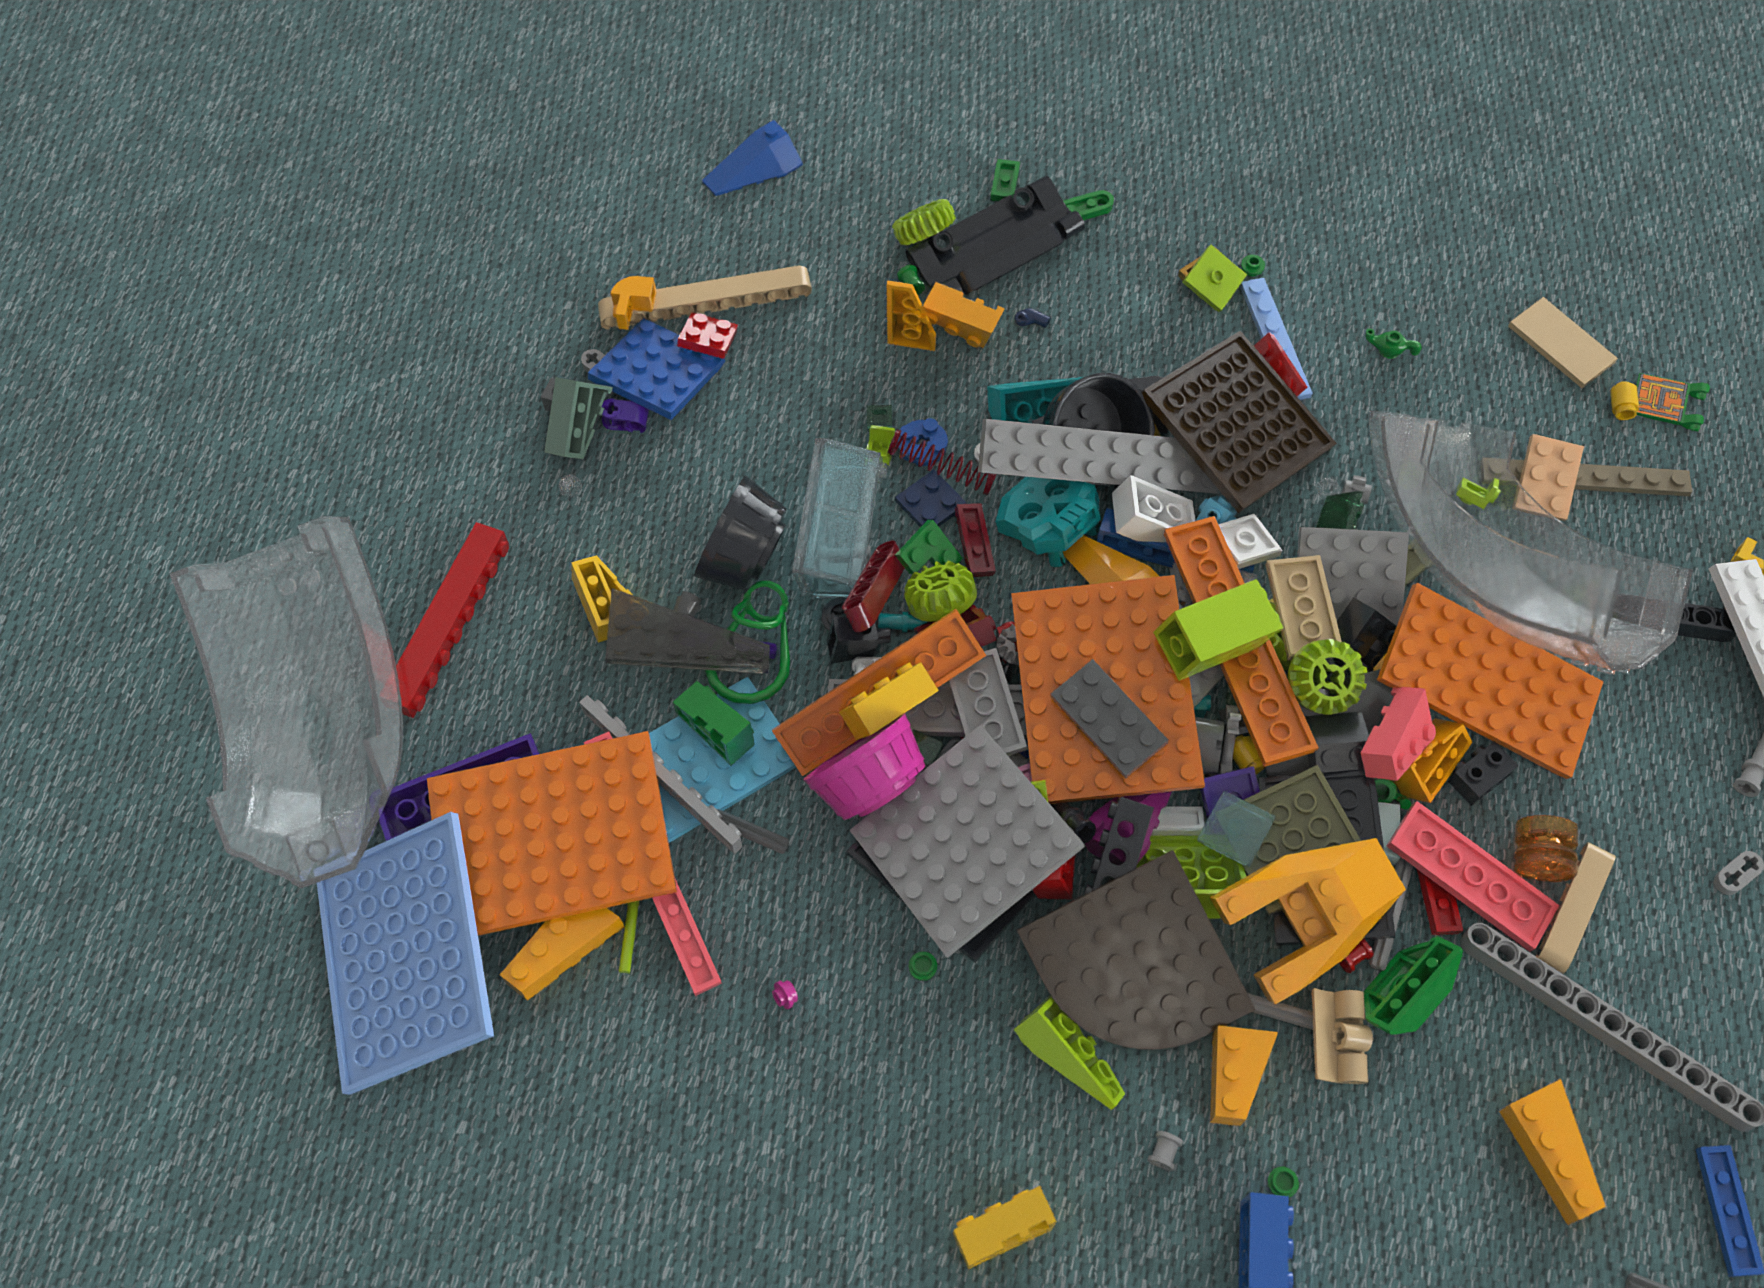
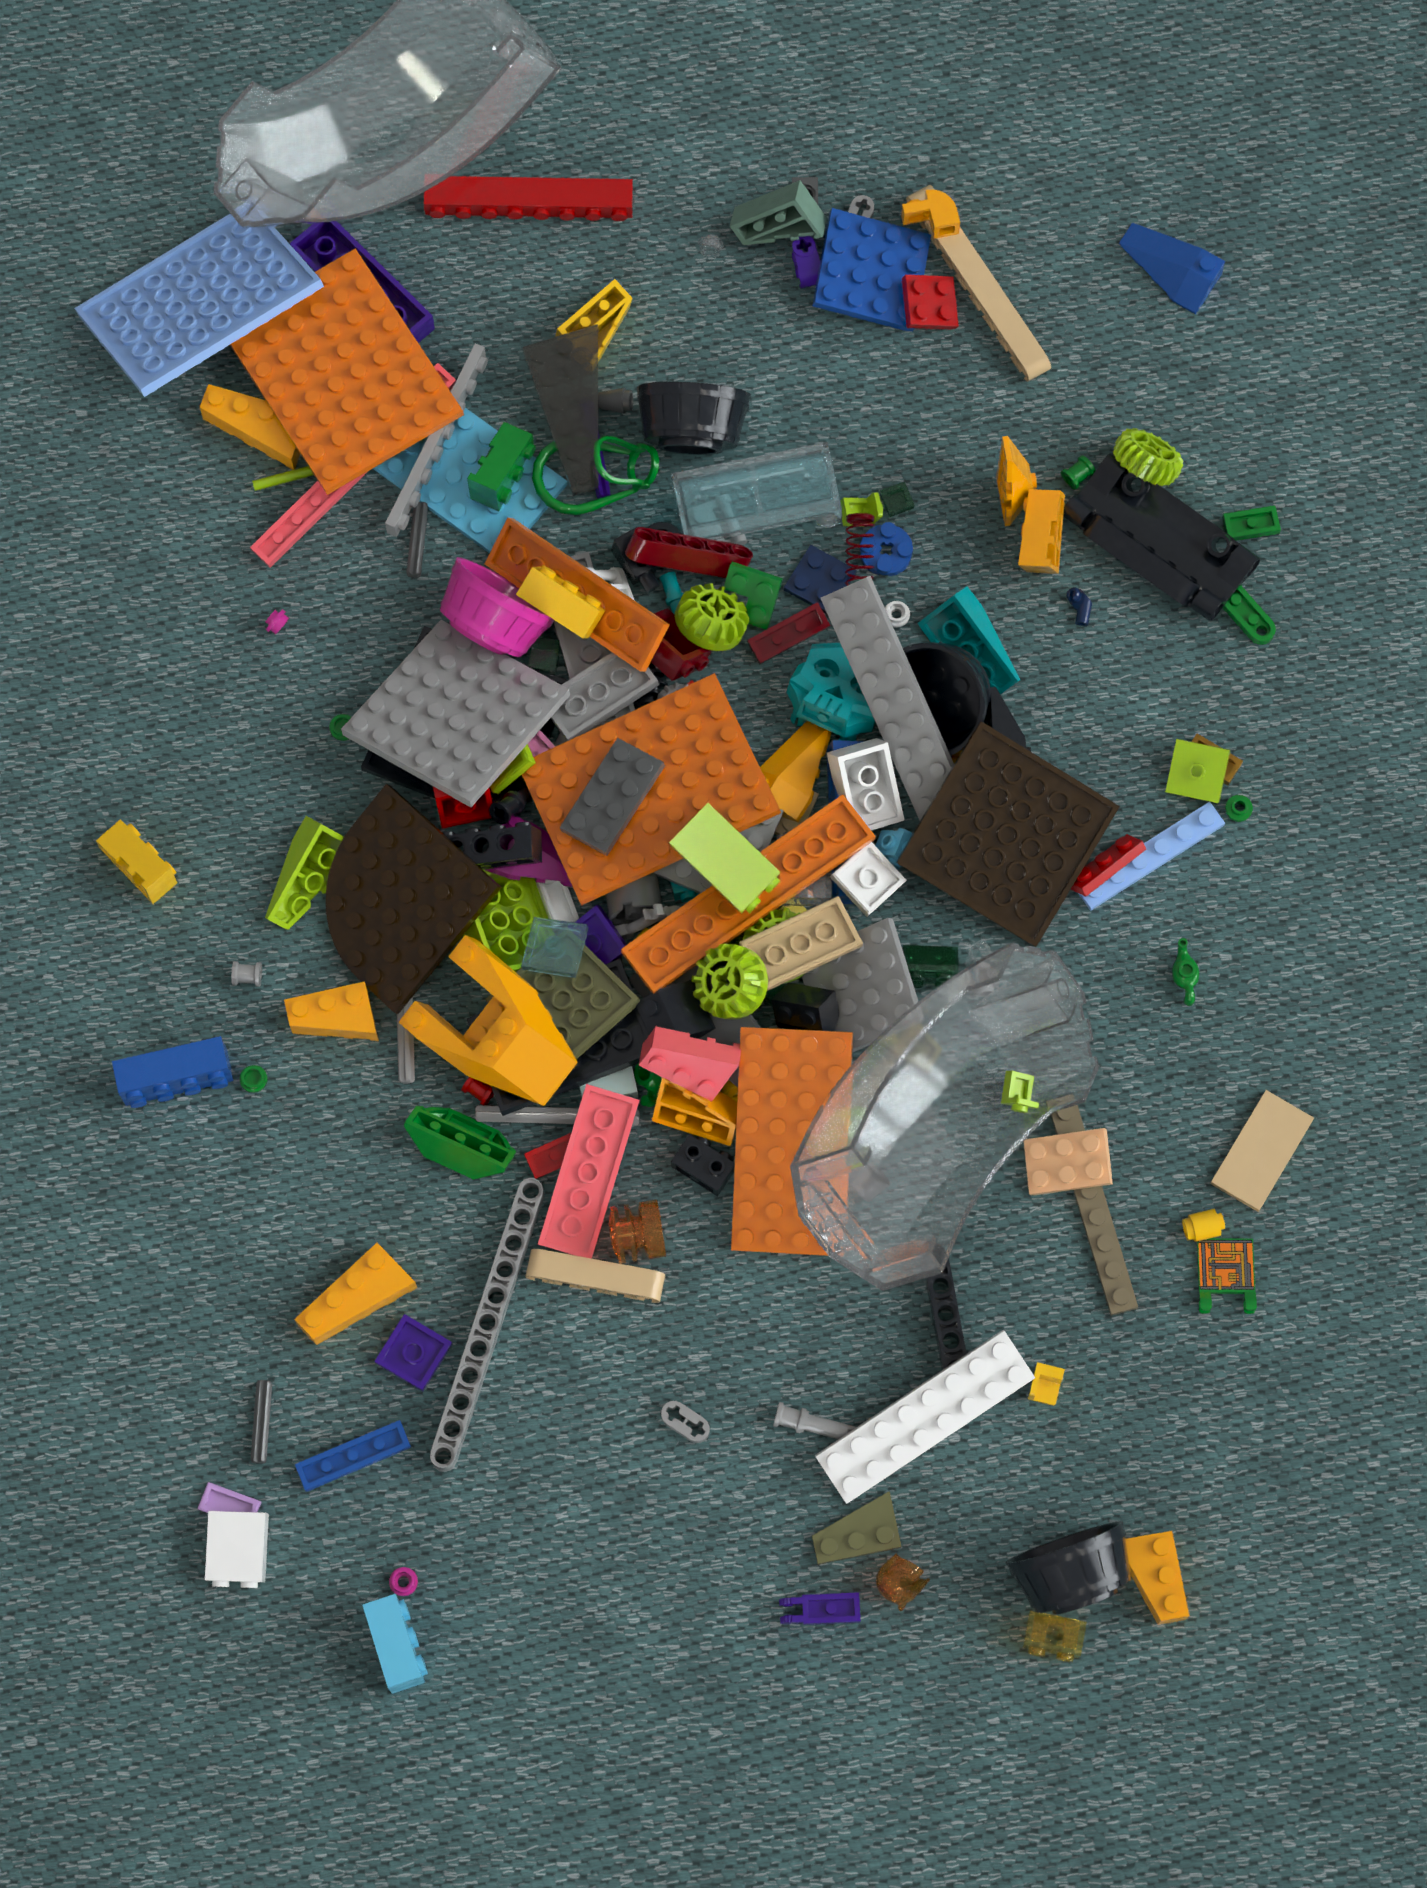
camera: 70 degrees right, 10 degrees up
(1340, 1036) = (395, 1090): tan panel -> none
(1625, 1111) = (413, 1352): none -> dark purple plate

